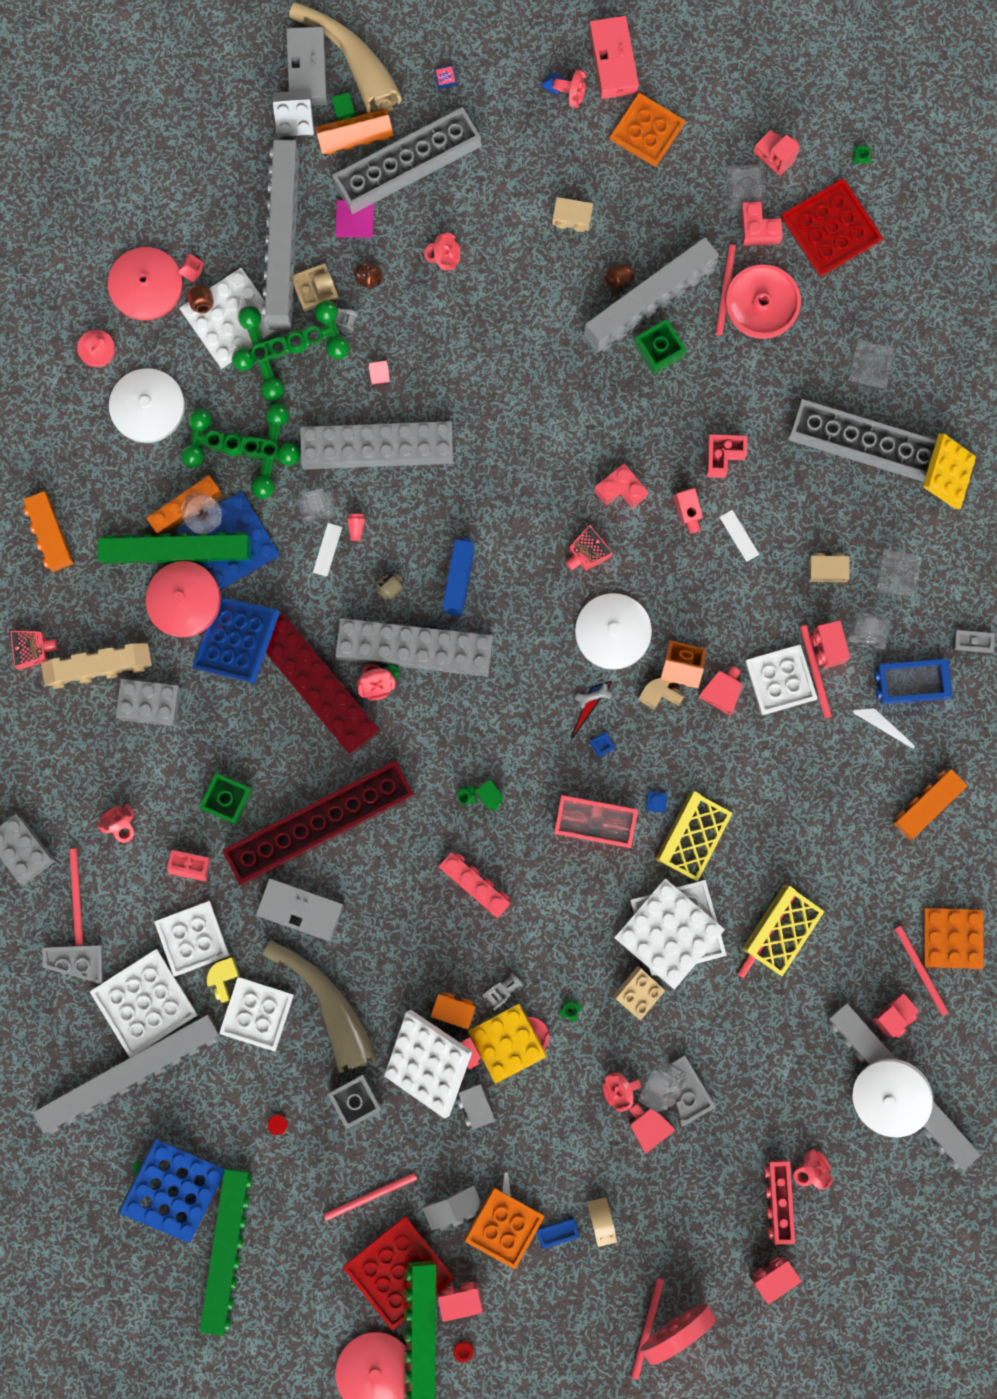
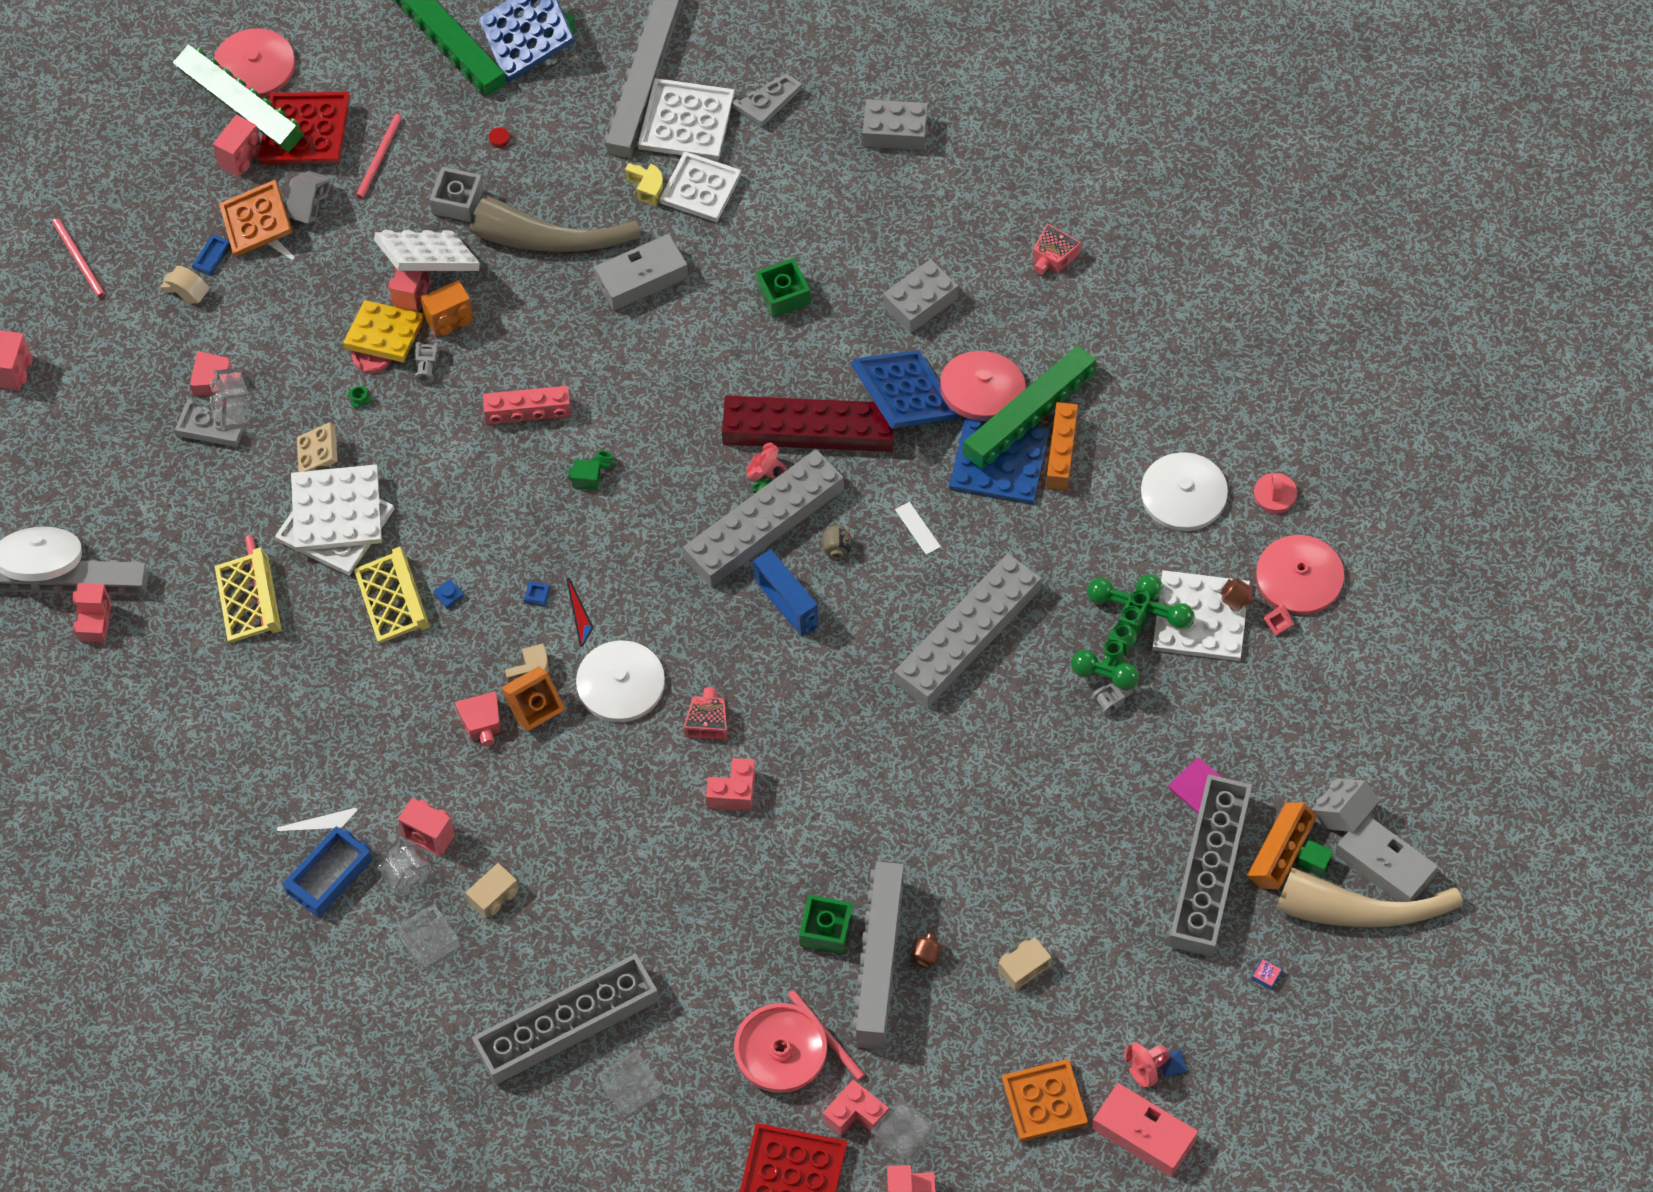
camera: 135 degrees right, 20 degrees down
(48, 532) = (1142, 334): orange brick -> none
(76, 897) = (818, 137): coral piece -> none
(105, 662) = (986, 286): tan brick -> none
(117, 819) = (846, 200): coral tile -> none
(188, 865) = (758, 223): coral hinge -> none
(211, 516) = (1038, 441): clear brick -> none
(256, 1014) = (595, 185): white plate -> none
(263, 485) = (1071, 574): green piece -> none
(282, 235) = (1234, 701): light grey brick -> none
(314, 286) = (1164, 700): tan plate -> none
(316, 504) = (960, 539): clear brick -> none
(318, 823) = (693, 336): dark red brick -> none
(355, 526) = (914, 560): coral cone -> none
(368, 275) = (1132, 748): copper head -> none
(379, 372) = (1034, 689): slope -> none
(445, 251) = (1090, 824): coral tile -> none
(463, 1351) = (203, 128): red tile -> none
(476, 1106) = (363, 270): light grey brick -> none
(583, 699) = (578, 629): light grey piece -> none
(596, 821) = (480, 530): clear brick -> none
(619, 1091) = (259, 377): coral tile -> none
(678, 1334) = (49, 255): coral brick -> none
(688, 501) = (661, 821): coral torso -> none
(720, 450) = (682, 893): coral brick -> none
(739, 535) = (597, 852): white sticker -> none
(781, 680) = (441, 771): white plate -> none
(781, 1202) = (57, 414): coral brick -> none
(815, 671) = (401, 797): coral piece -> none
(816, 1168) = (49, 458): coral tile -> none
(921, 970) = (65, 662): coral piece -> none
(930, 804) = (219, 793): orange brick -> none
(949, 471) = (467, 1057): yellow plate -> none
(953, 938) = (100, 717): orange plate -> none
(974, 641) = (307, 952): light grey plate -> none

